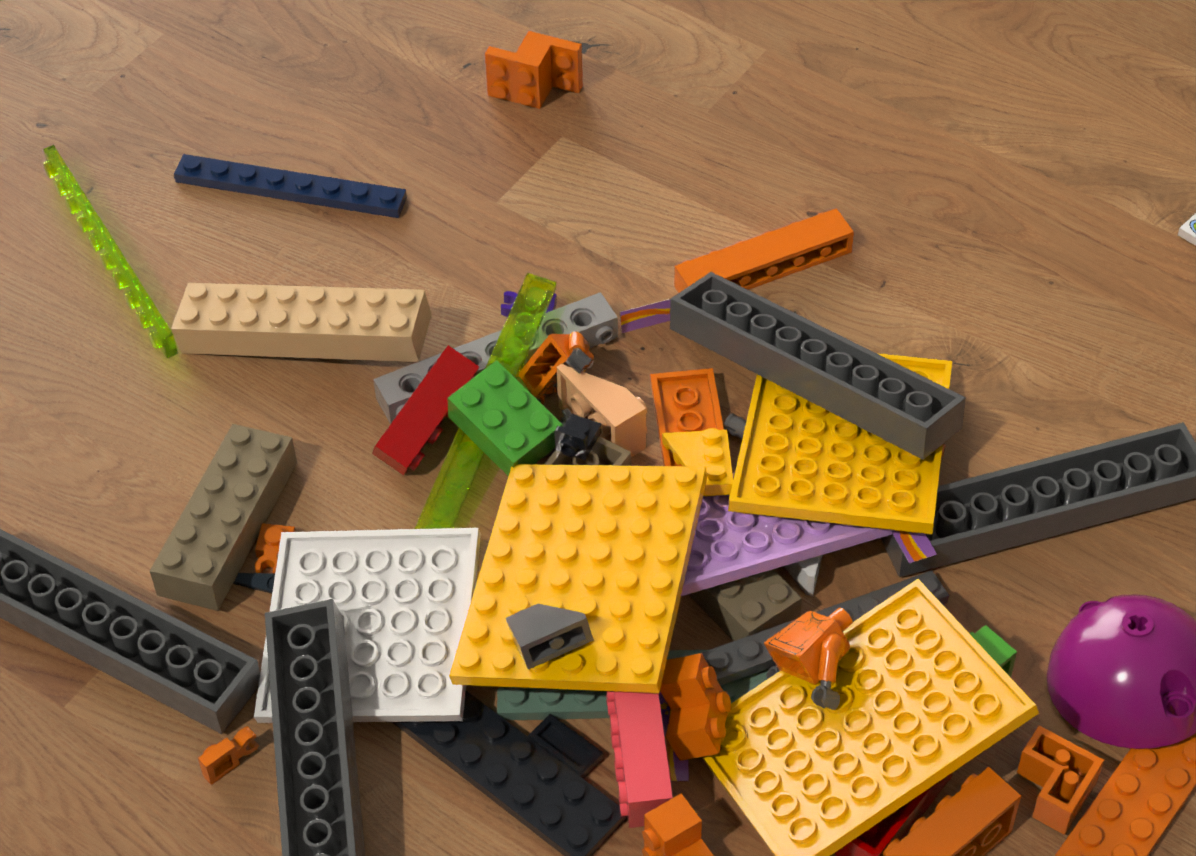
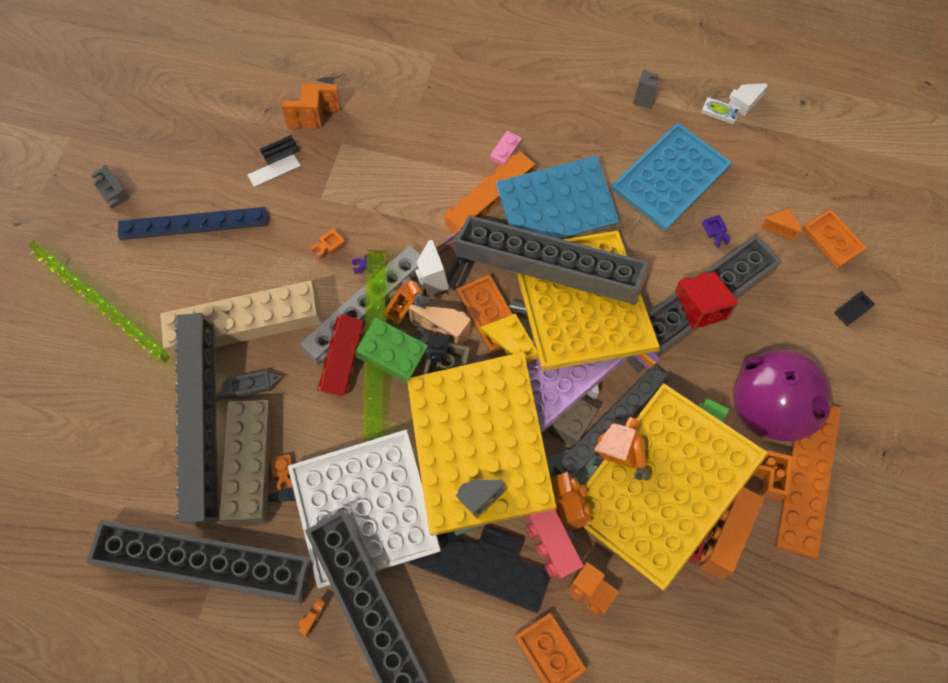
camera: 25 degrees left, 15 degrees up
(175, 429) = (196, 420): none -> dark grey brick
(190, 108) = (109, 187): none -> dark grey hinge
(267, 415) = (247, 385): none -> dark grey plate
(441, 146) = (273, 170): none -> white sticker
(462, 120) = (278, 147): none -> black tile
(480, 261) = (329, 242): none -> orange plate
(618, 335) = (431, 271): none -> white slope
(662, 352) = (465, 274): none -> black tile
(820, 200) = (505, 148): none -> bright pink plate
(875, 291) = (559, 199): none -> dark azure plate
(1045, 487) = (705, 300): none -> red slope
(1082, 310) = (671, 176): none -> dark azure plate
(1086, 172) = (646, 90): none -> dark grey hinge
(1126, 405) = (716, 228): none -> dark purple plate

